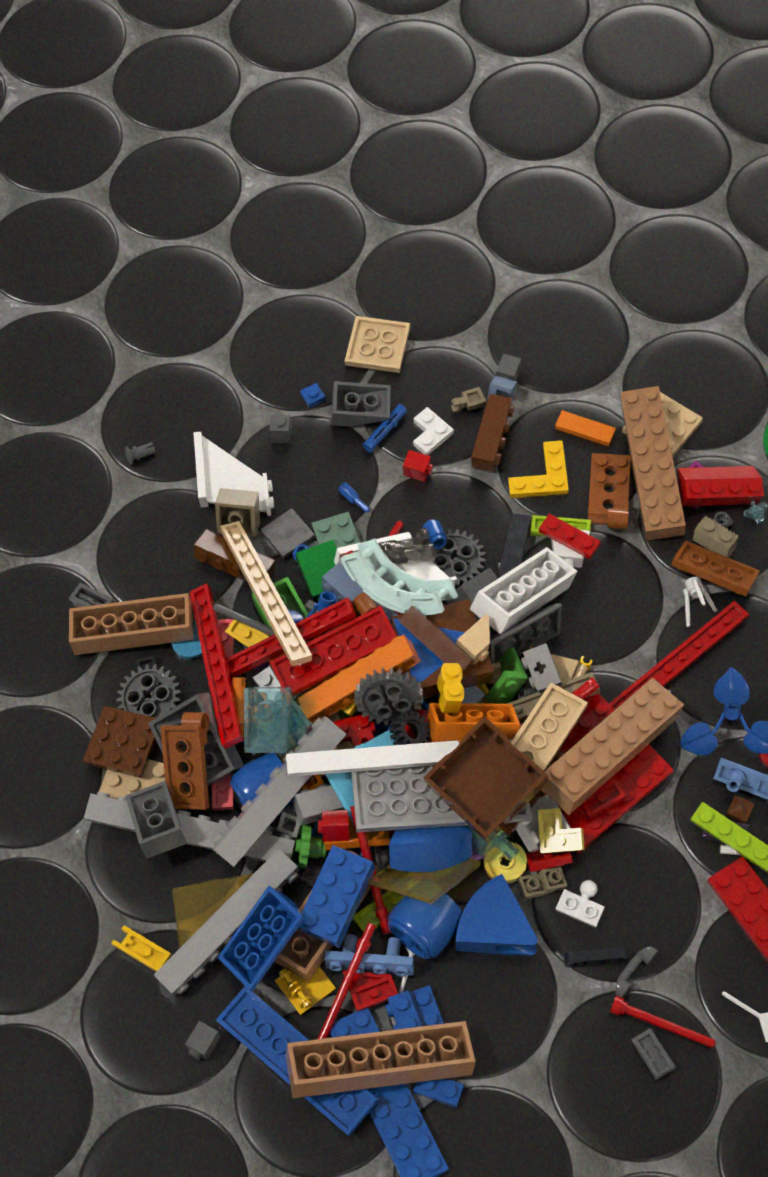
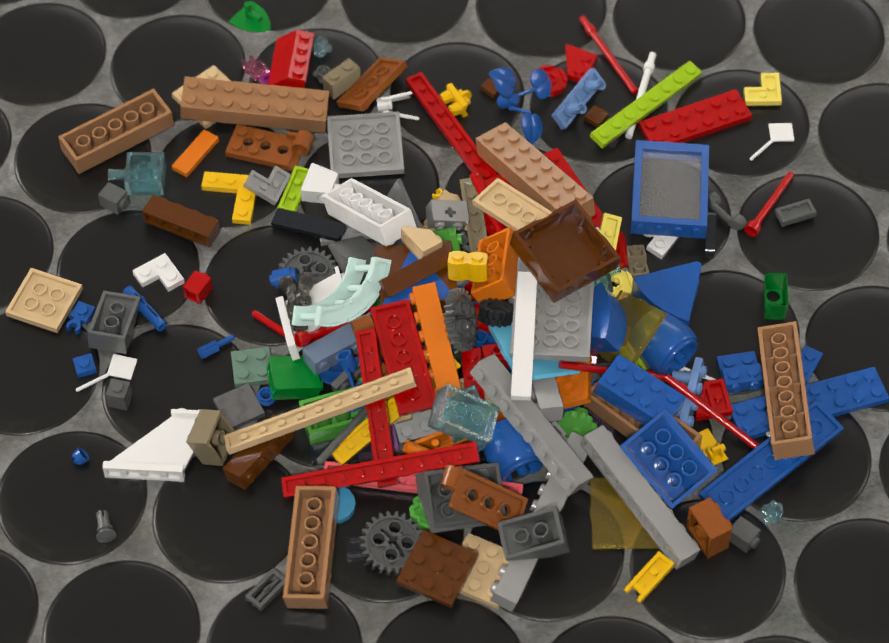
camera: 85 degrees left, 5 degrees down
(199, 999) = (709, 527): none -> dark orange brick
(214, 413) = (80, 456): none -> blue hinge
(235, 1068) = (772, 512): none -> clear light blue piece
(315, 425) = (120, 367): none -> white piece
(334, 826) = (572, 386): red brick -> none
(368, 376) = (80, 315): none -> blue plate
(471, 399) = (135, 233): dark tan plate -> none
(502, 387) = (133, 204): sand blue panel -> none
(524, 1028) = (775, 282): none -> green piece
(541, 386) = (143, 173): none -> clear light blue brick
(553, 503) = (270, 188): none -> light grey plate
(569, 536) = (315, 177): red plate -> none
(588, 351) = (116, 131): none -> medium nougat brick
(635, 580) = (365, 144): none -> light grey plate
(645, 901) = (670, 189): none -> window
(709, 457) = (254, 69): none -> clear pink plate
(722, 657) = (460, 100): none -> yellow hips
(756, 692) = (489, 88): none -> reddish brown tile

